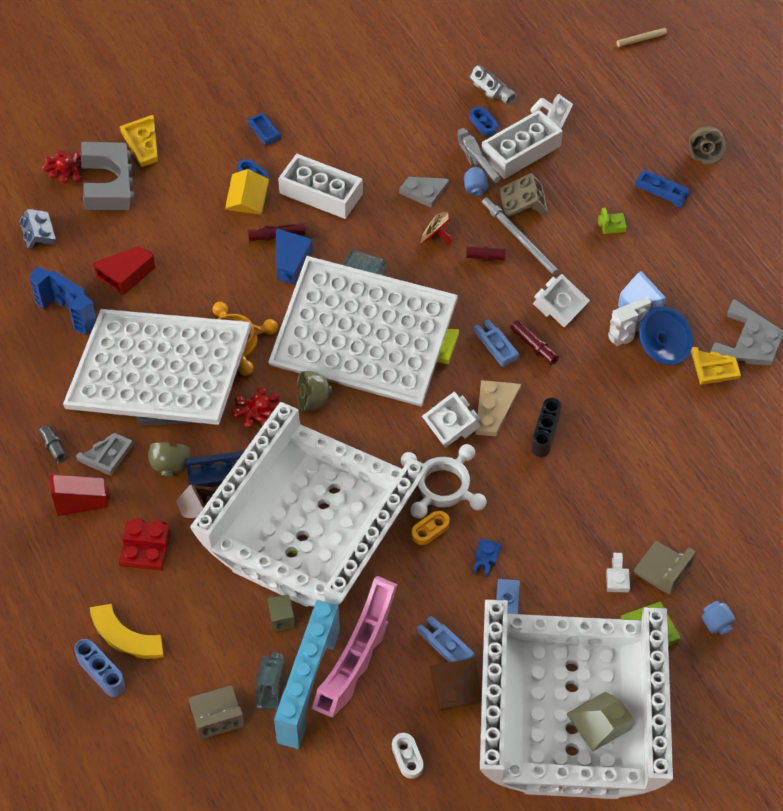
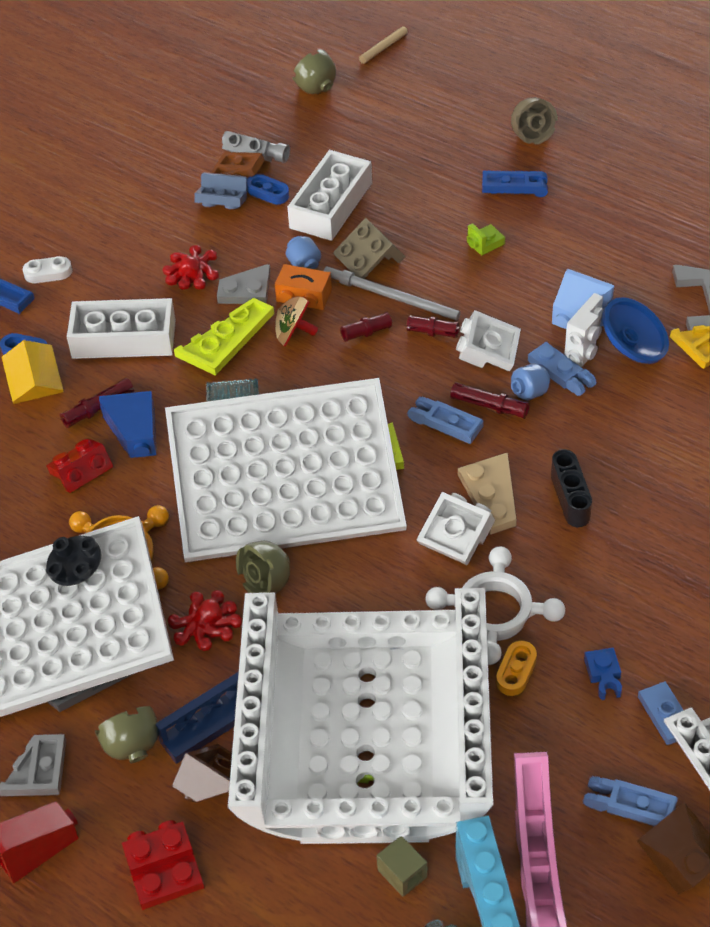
camera: 25 degrees left, 5 degrees down
(193, 333) = (73, 560): none -> black dish
(241, 270) = (80, 465): none -> red bracket
(300, 121) = (47, 269): none -> white plate
(388, 221) = (226, 337): none -> neon yellow wing
(394, 160) = (190, 268): none -> red animal
(450, 110) = (222, 190): none -> sand blue bracket
(461, 206) = (303, 282): none -> orange brick
(469, 95) = (239, 164): none -> dark orange wing
(474, 153) = (281, 224): light grey piece -> none
(531, 272) = (433, 326): none -> dark red pin
(557, 110) = (342, 142): white plate -> none
(569, 341) = (530, 381): none -> medium blue head
(572, 43) = (315, 73): none -> olive cylinder
(599, 340) = (562, 369): none -> medium blue hinge

